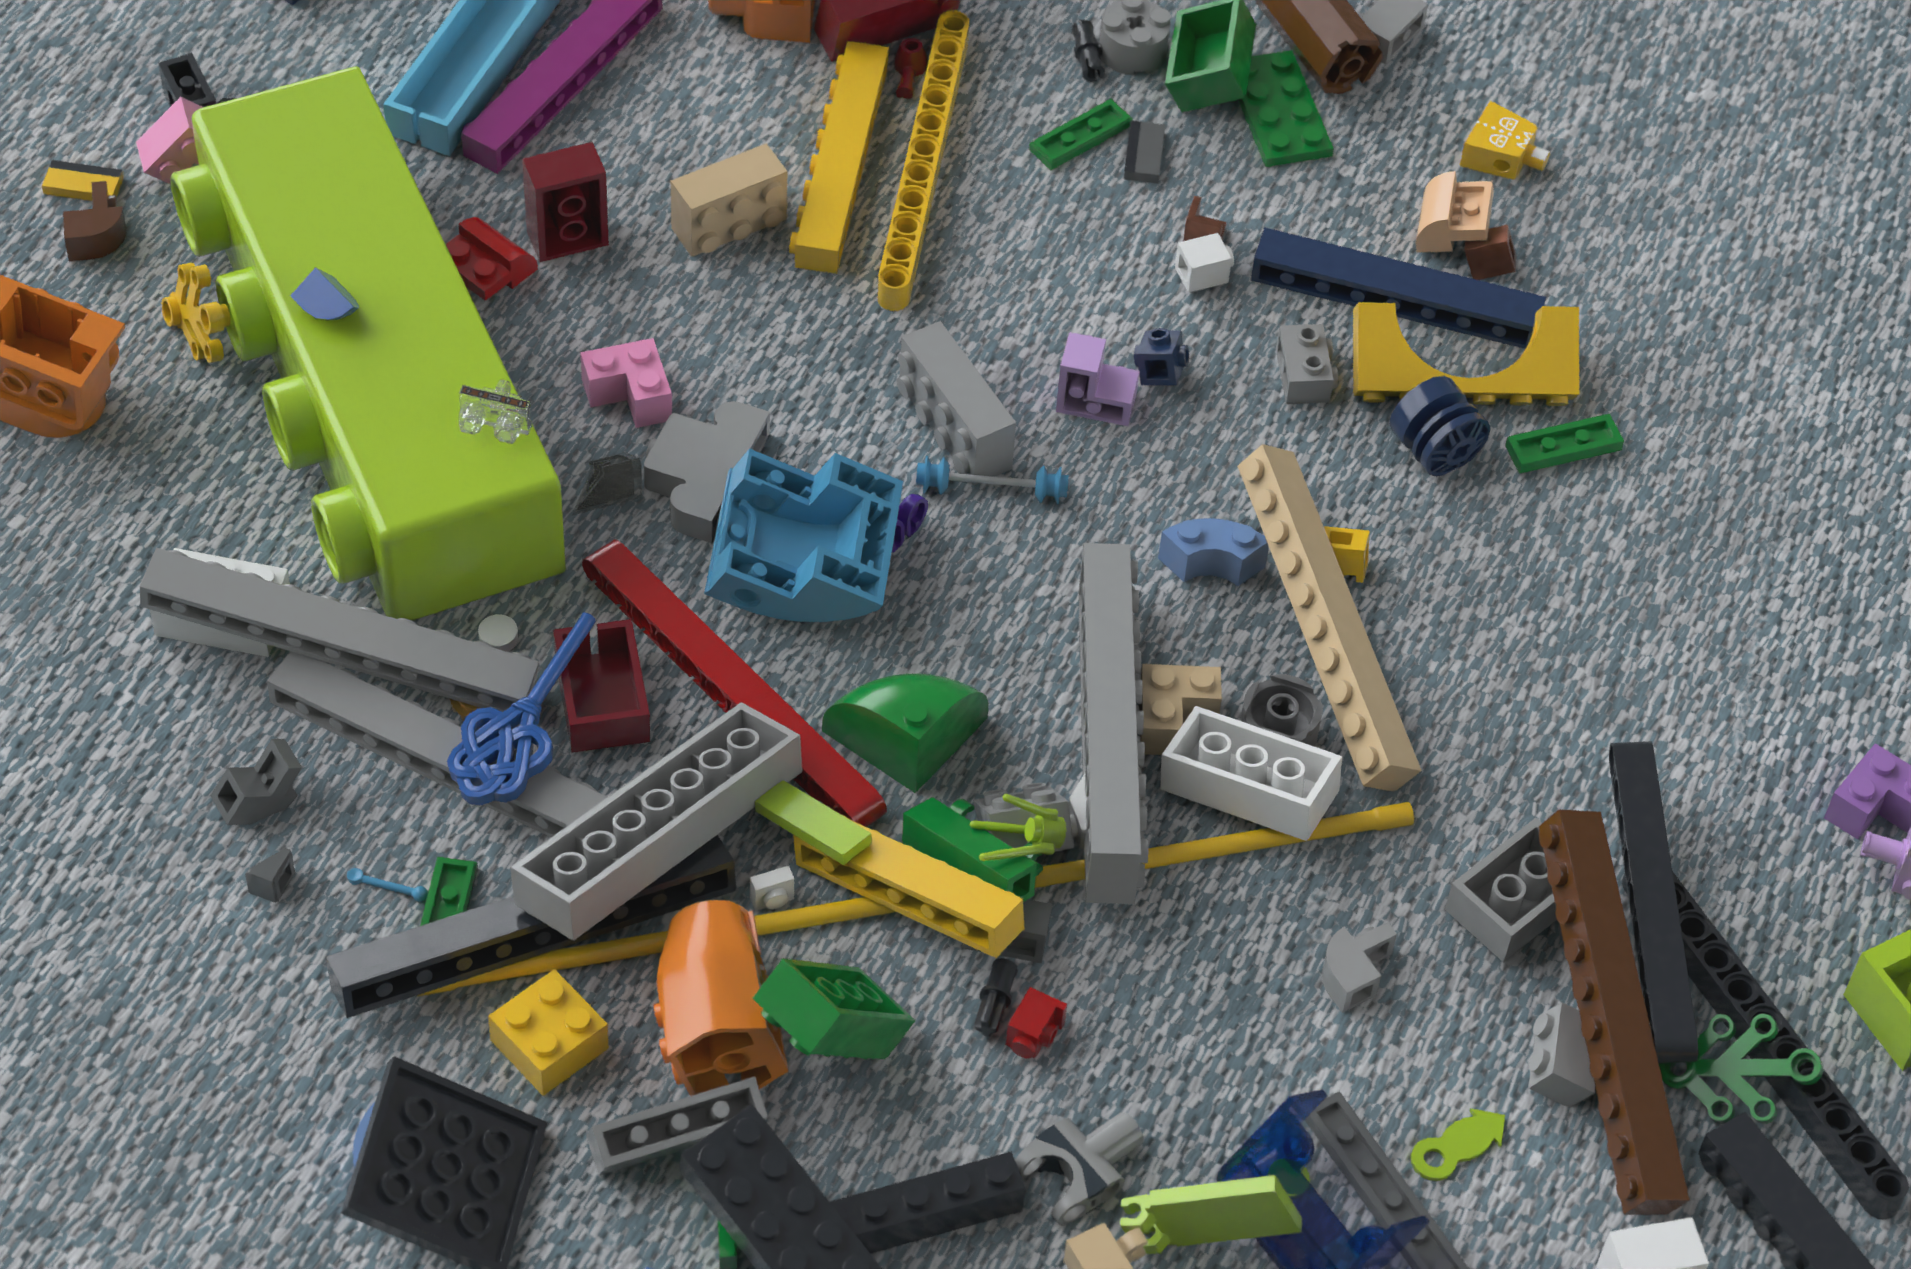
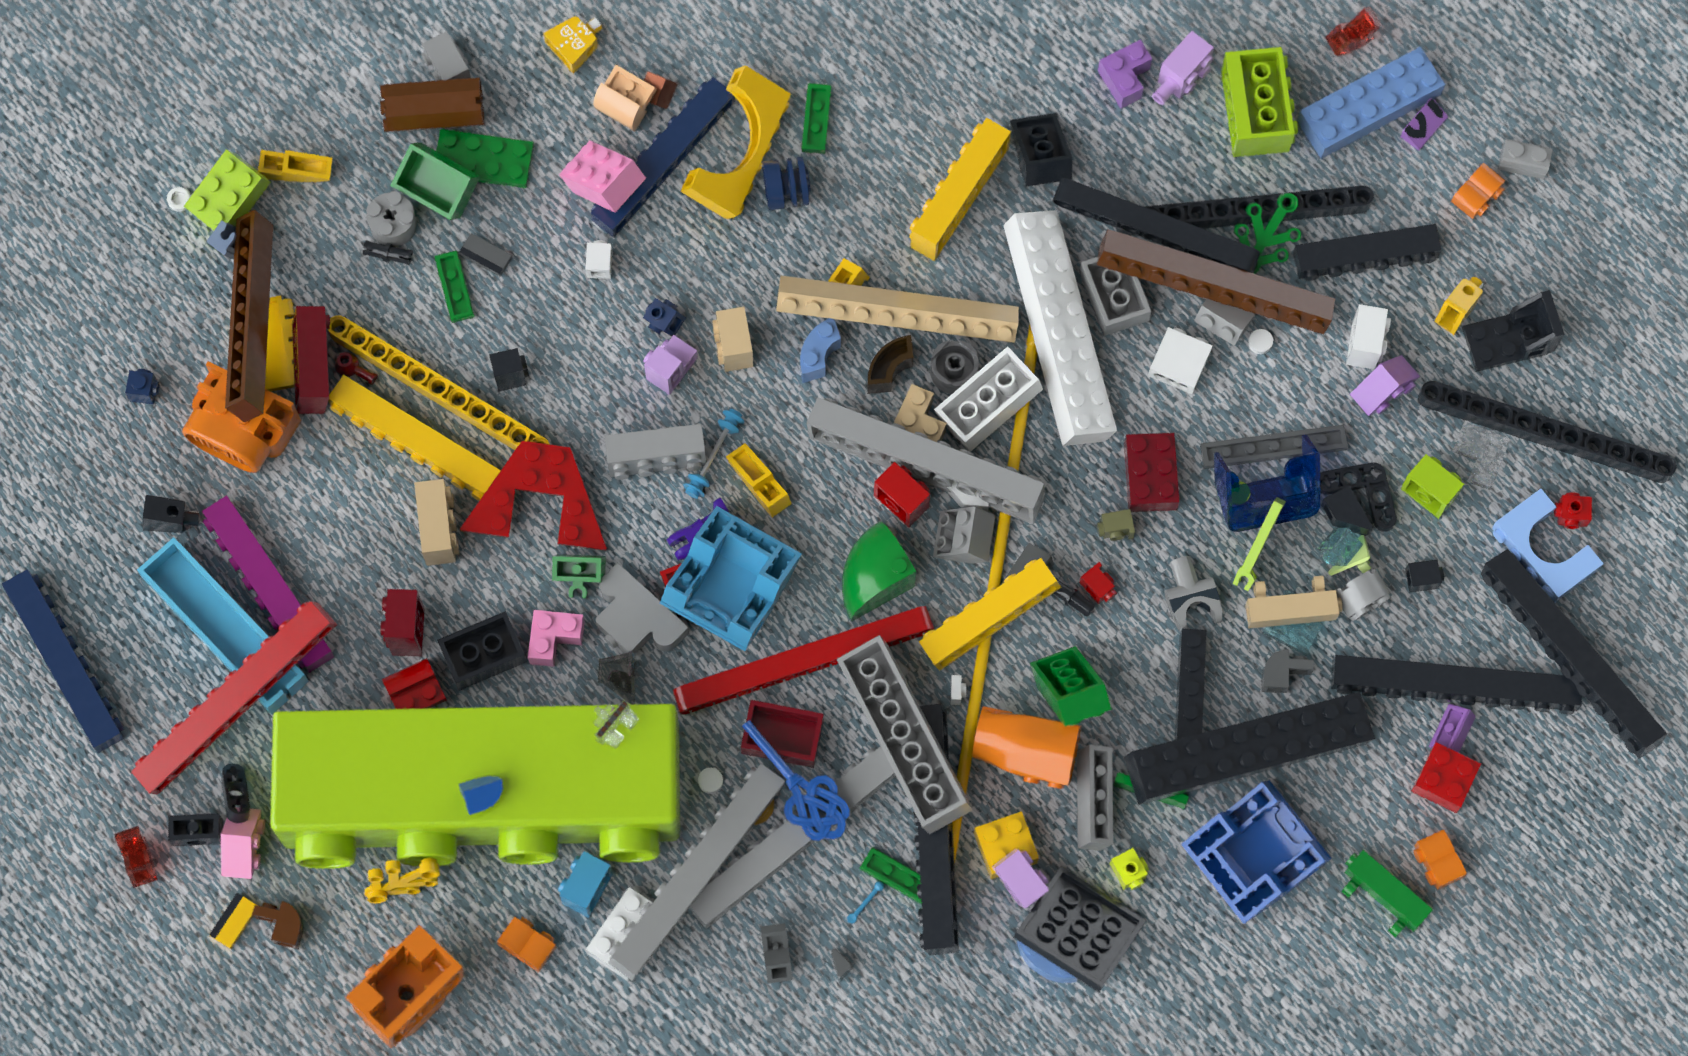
camera: 65 degrees left, 20 degrees up
(133, 57) = (136, 856): none -> clear red brick
(164, 493) = (526, 943): none -> orange brick
(272, 522) = (585, 883): none -> dark azure brick
(385, 60) = (234, 697): none -> brick
(490, 1048) = (1020, 878): none -> lavender brick
(569, 306) = (482, 650): none -> black brick
(580, 1219) = (1129, 869): none -> neon yellow brick
(737, 376) = (578, 570): none -> green brick
(813, 822) = (933, 650): lime tile -> none
(859, 284) = (545, 471): none -> red wing
(948, 837) = (980, 574): green brick -> none
(979, 547) = (759, 480): none -> yellow slope
(987, 208) = (509, 369): none -> black brick
(1043, 712) = (902, 494): none -> red brick
(1044, 831) = (992, 529): lime plant -> none
(1143, 1018) = (1116, 525): none -> olive brick
(1171, 439) = (733, 339): none -> tan brick
(1200, 226) = (568, 248): copper panel -> none
(1238, 638) = (889, 363): none -> dark brown brick
(1254, 1036) = (1151, 472): none -> dark red brick
(1305, 364) = (699, 236): light grey brick -> none
(1322, 215) = (602, 176): none -> bright pink brick
(1349, 966) = (1125, 405): light grey brick -> none
(1415, 833) = (1060, 328): none -> white brick
(1459, 1143) = (1248, 396): lime brick -> none
(1462, 1020) = (1180, 359): none -> white piece
(1560, 635) = (959, 189): none -> yellow brick
(1560, 1129) = (1260, 341): none -> white tile
(1689, 727) = (1041, 149): none -> black slope

